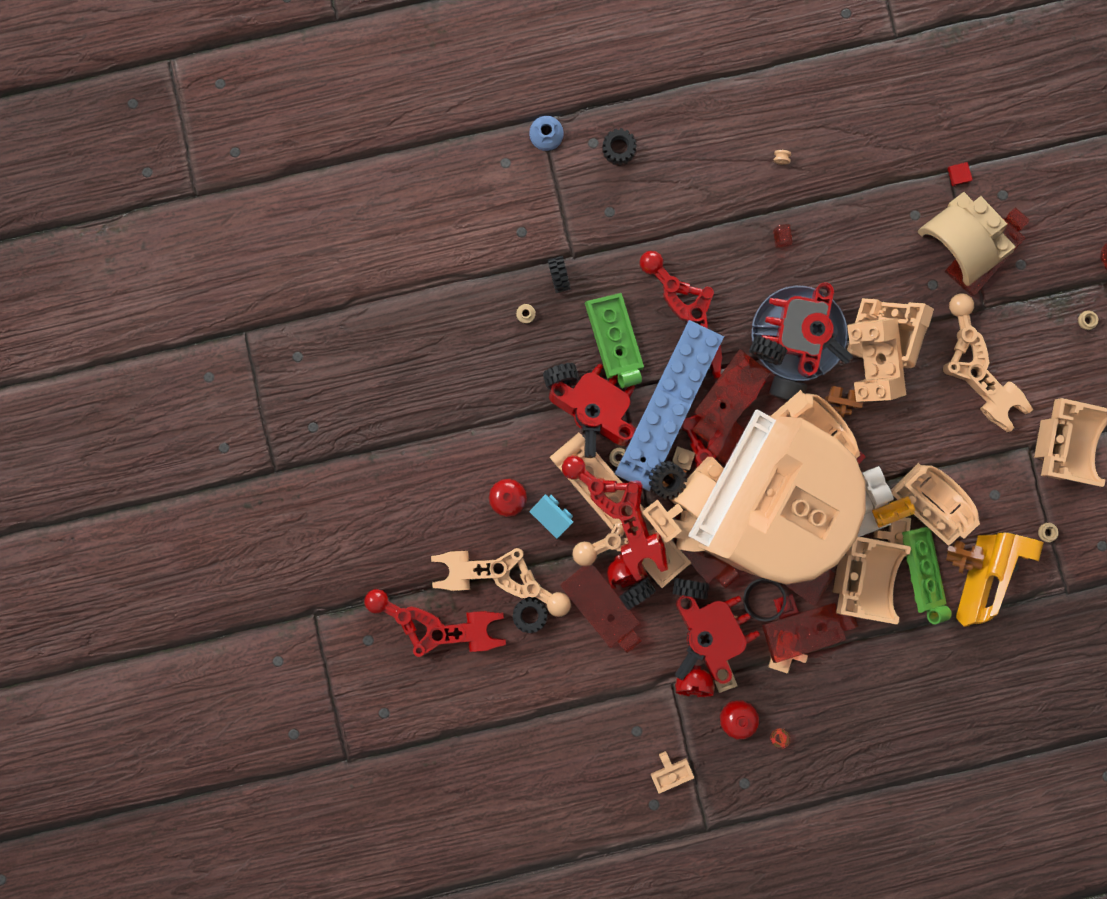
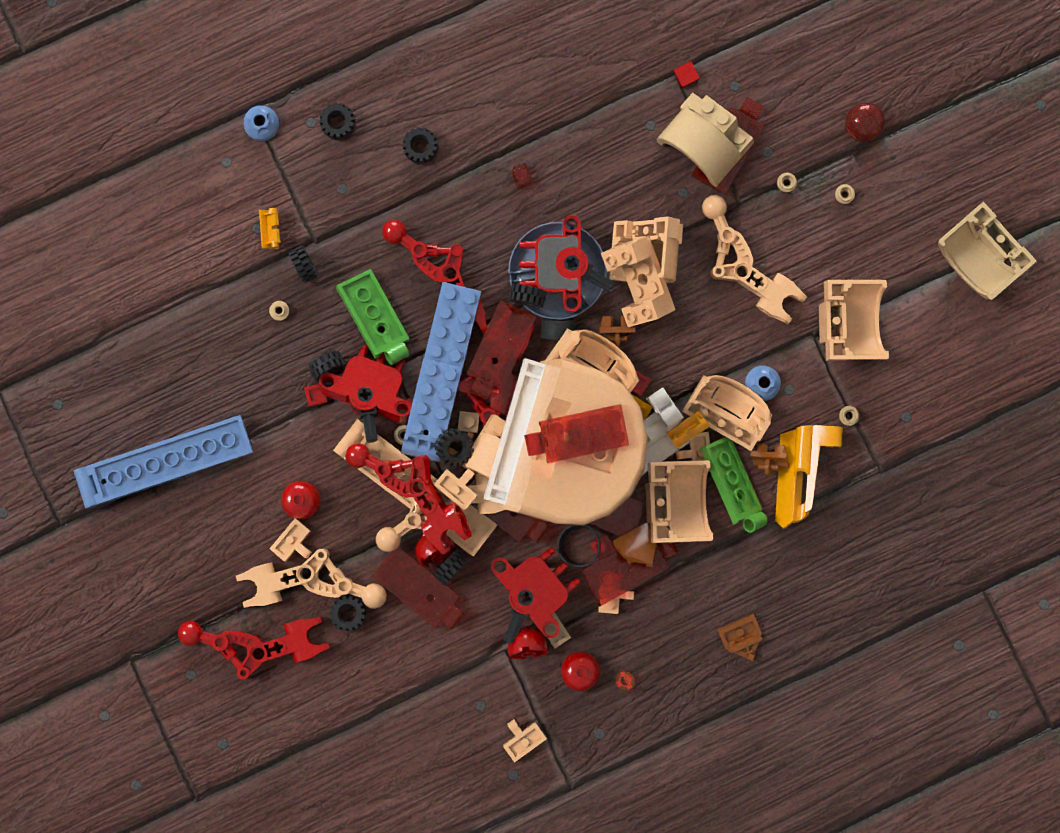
camera: 15 degrees left, 0 degrees up
(385, 432) = (163, 461): none -> medium blue hinge
(491, 534) = (291, 540): none -> light nougat plate
(532, 238) = (268, 226): none -> light orange hinge
(542, 401) = (314, 395): none -> red tile
(551, 515) = (347, 509): medium azure slope -> none
(691, 588) = (502, 550): black tyre -> none
(693, 175) = (420, 157): none -> black tyre
(782, 157) = (504, 96): light nougat bush -> none
(814, 495) = (588, 431): none -> clear red hinge
(821, 612) = (637, 545): none -> dark orange slope
(901, 721) = (741, 636): none -> dark orange slope
(963, 478) = (763, 371): none -> medium blue piece
(1039, 294) = (791, 178): none -> tan plate

